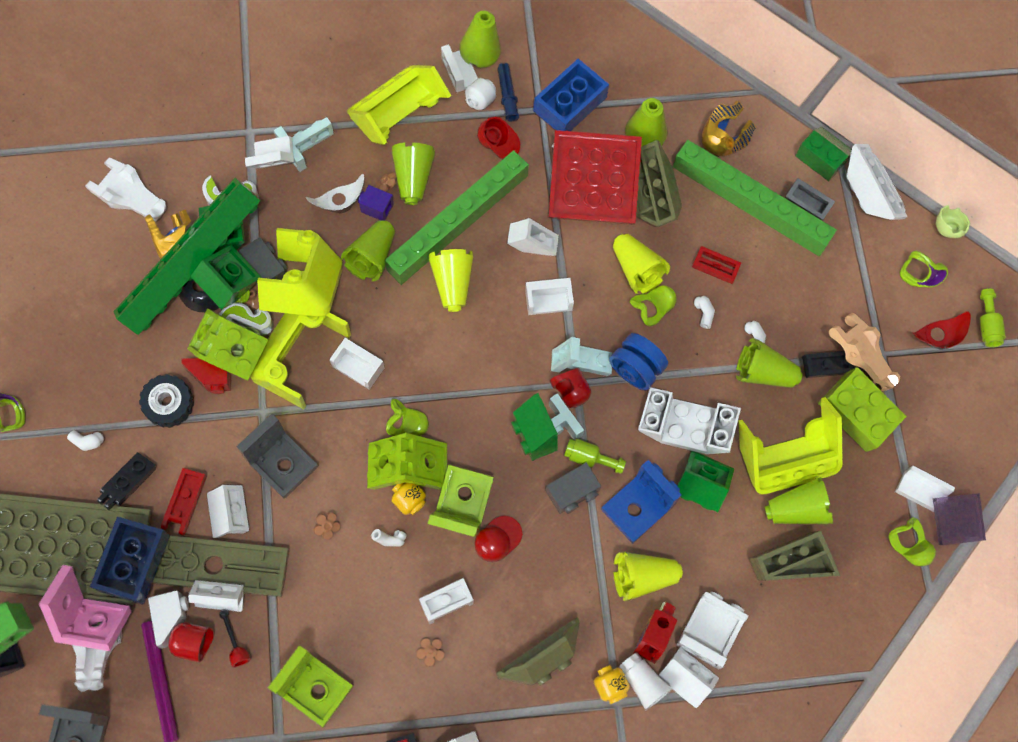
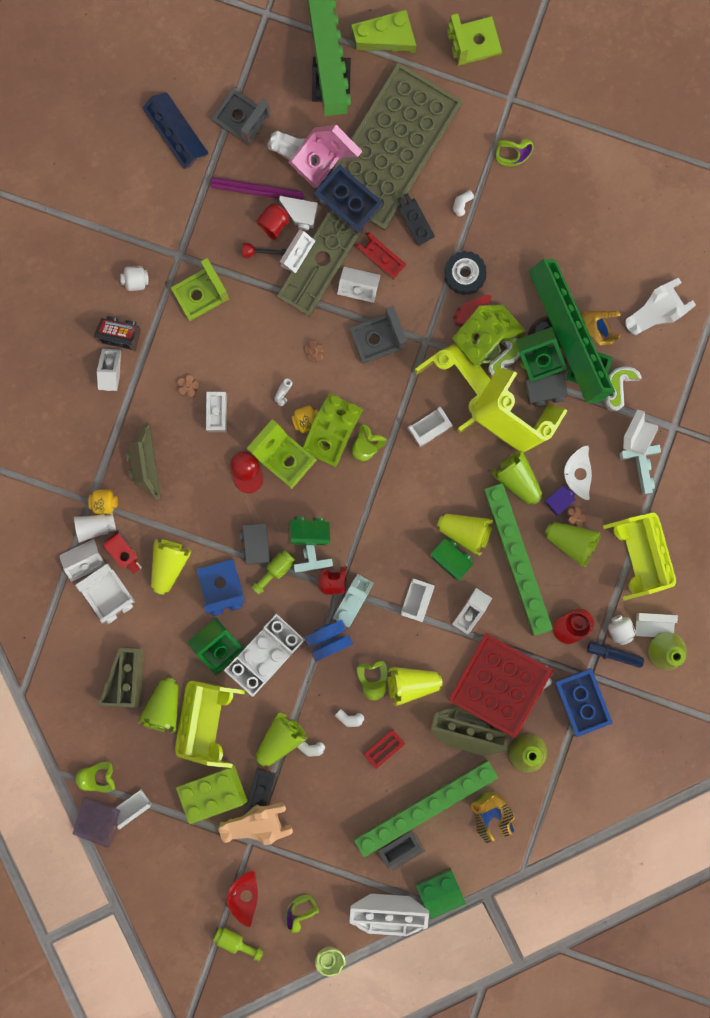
camera: 115 degrees right, 15 degrees up
(490, 279) = (451, 559): none -> green slope

